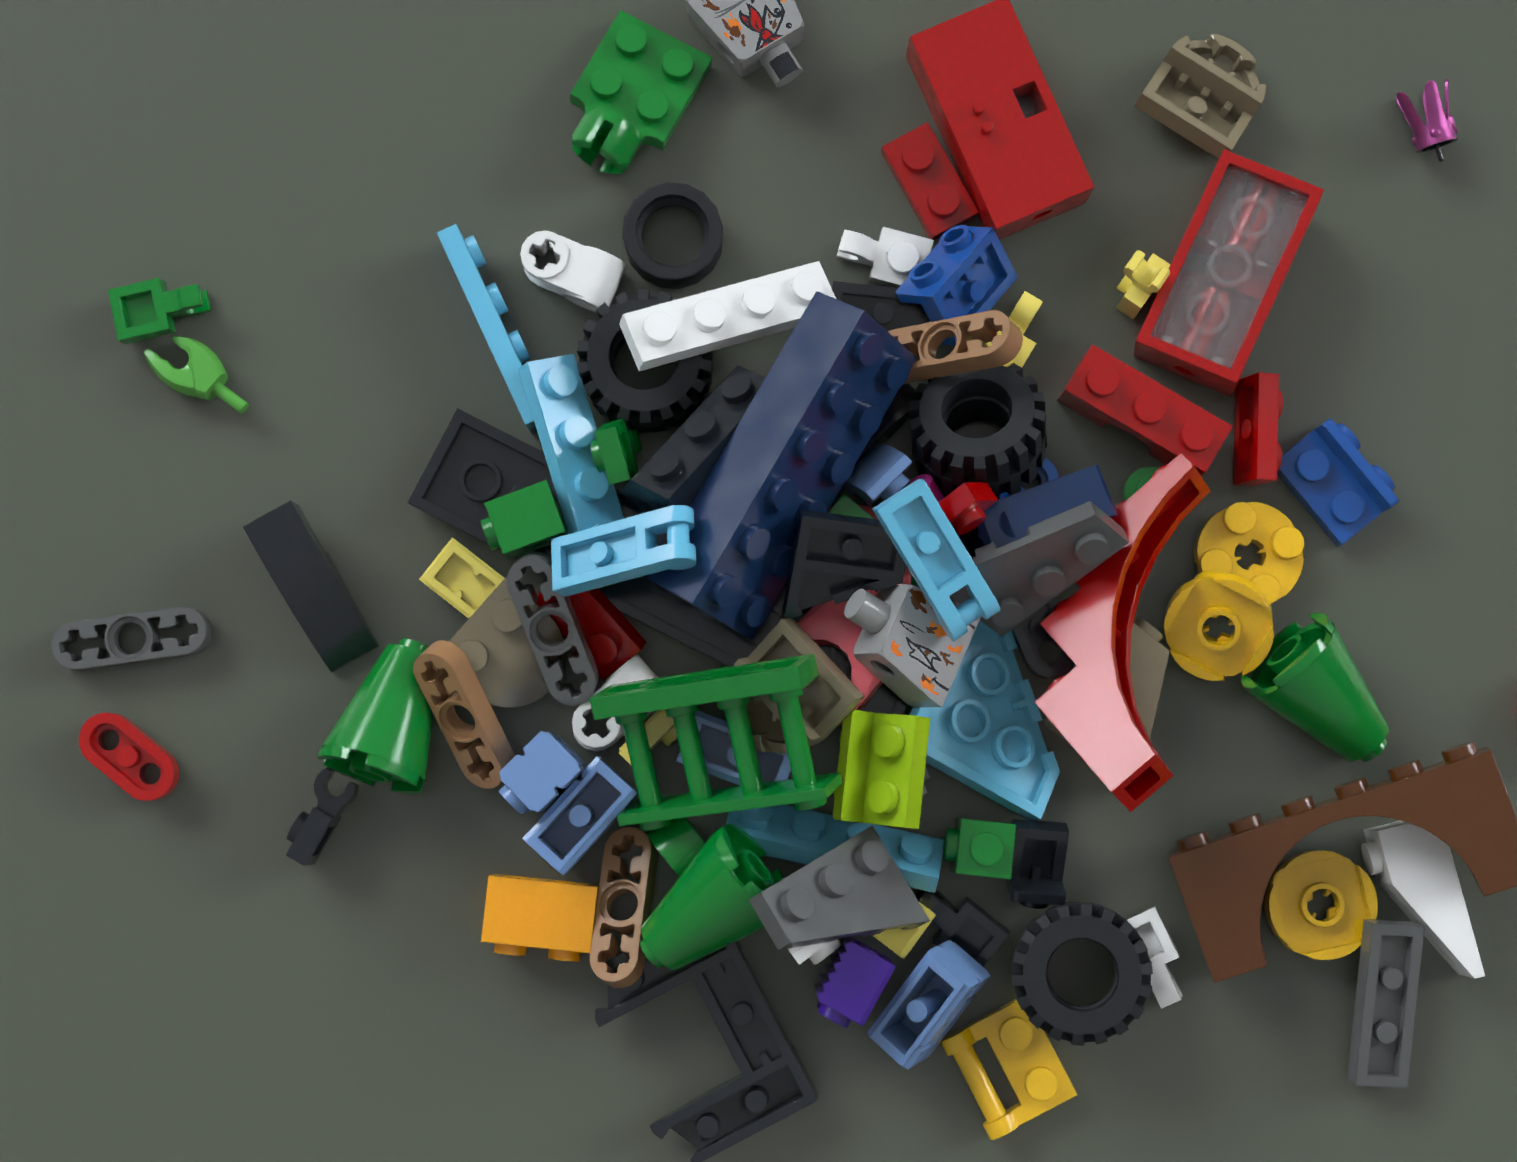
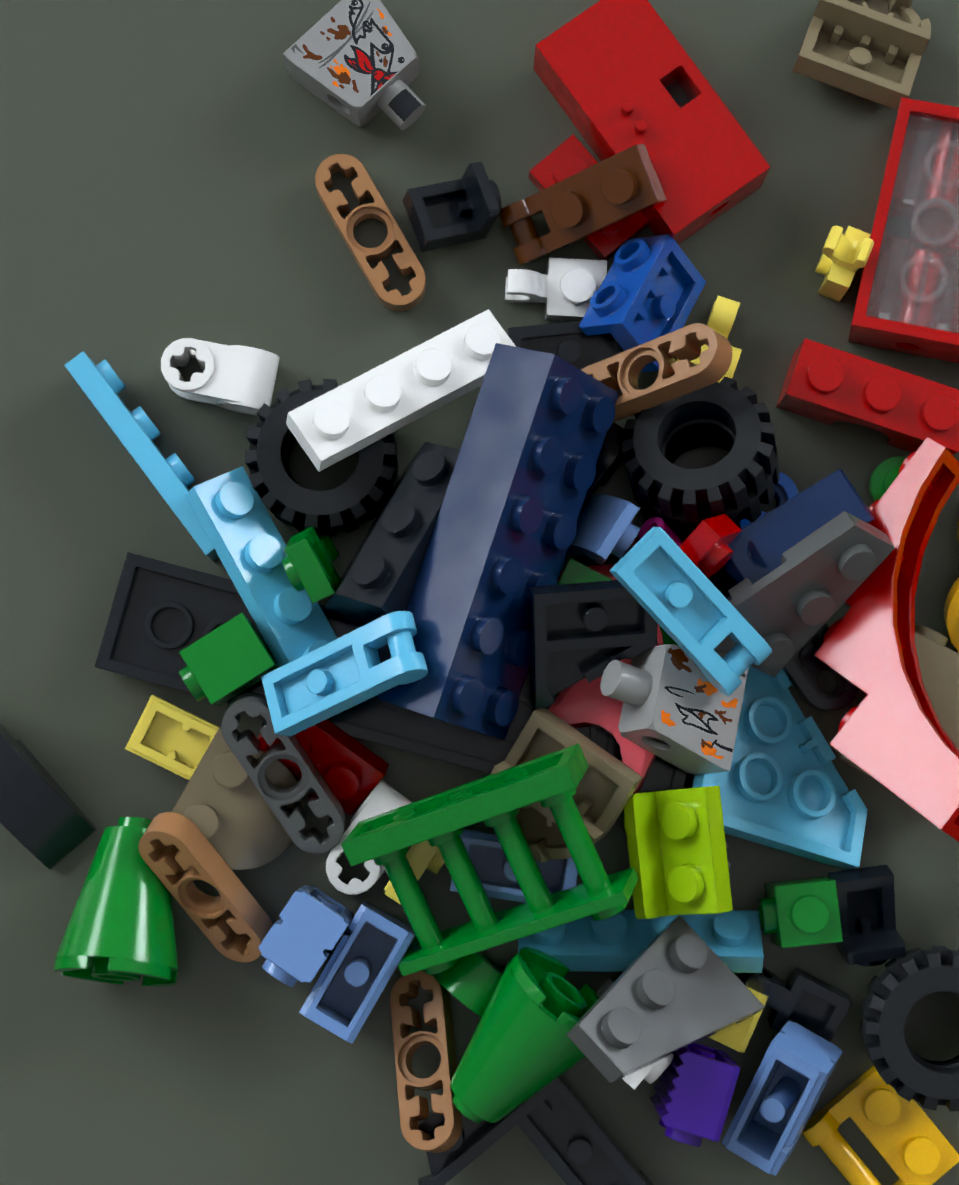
camera: 15 degrees left, 0 degrees up
(313, 830) = (66, 1049): black plate -> none
(539, 915) = (335, 1090): light orange brick -> none
(634, 92) = (247, 167): green plate -> none
(673, 195) = (317, 270): black tyre -> none
(704, 141) = (336, 204): none -> medium nougat beam
(807, 167) = (454, 209): none -> black bracket
(923, 185) = (584, 204): none -> reddish brown plate

